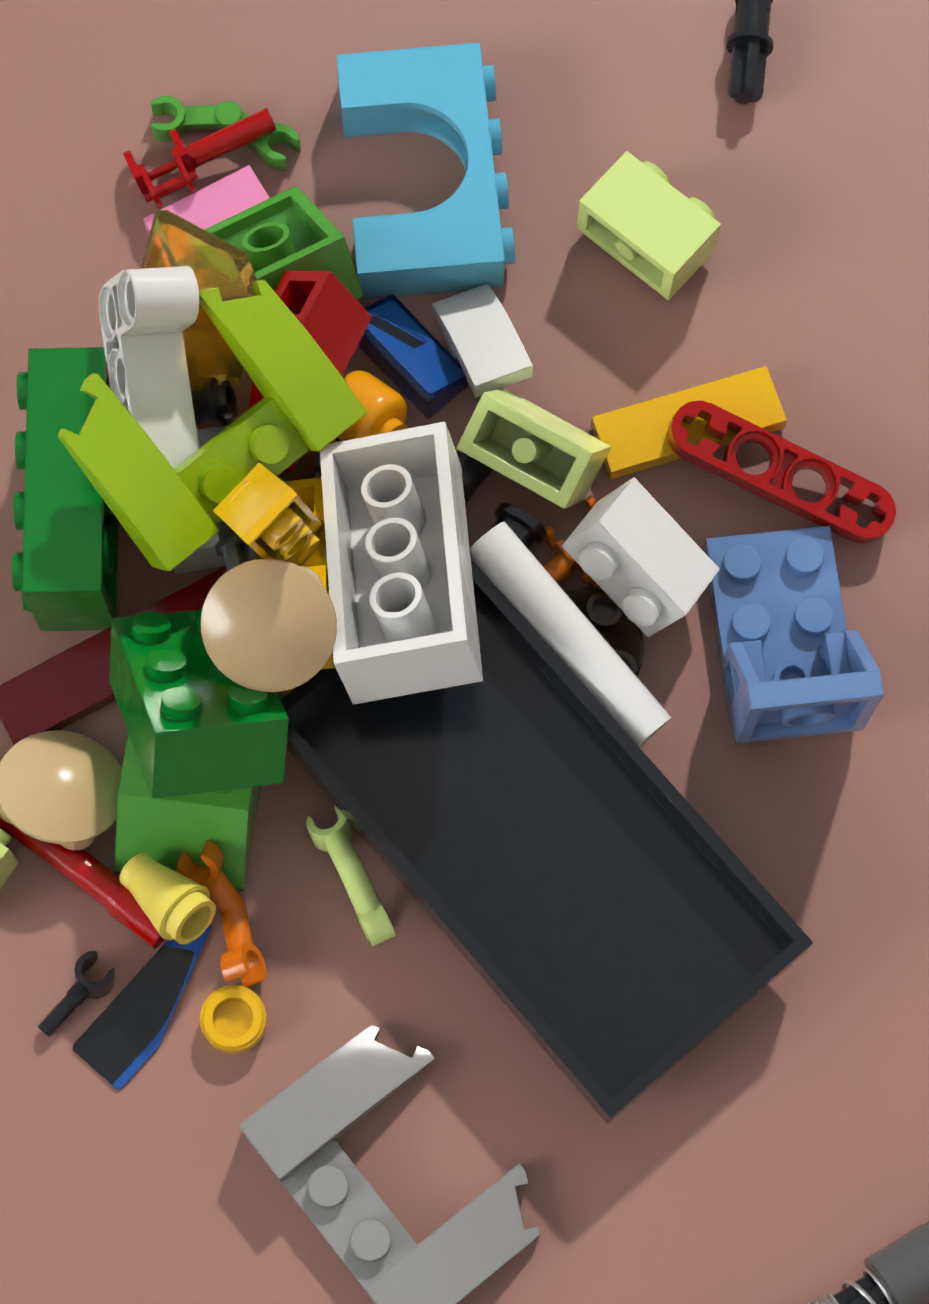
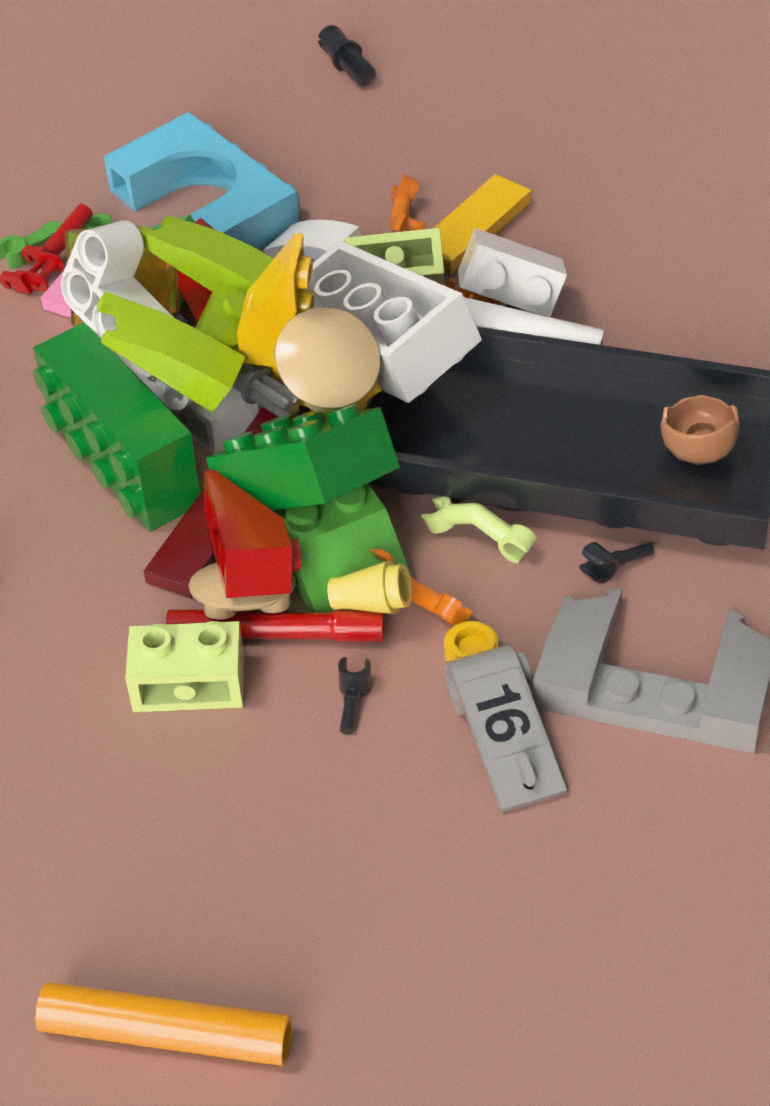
camera: 30 degrees left, 25 degrees down
(76, 762) = (248, 541): none -> red slope
(140, 1014) = (404, 687): black sticker -> none
(183, 1145) = (505, 725): none -> light grey door
(439, 1010) = (604, 564): none -> black hand
(640, 327) = (402, 198): none -> orange arm
(644, 942) = (700, 429): none -> nougat hair
(648, 224) = (365, 144): yellowish green brick -> none
(785, 462) = (615, 209): red beam -> none
(786, 638) = (643, 288): medium blue bracket -> none

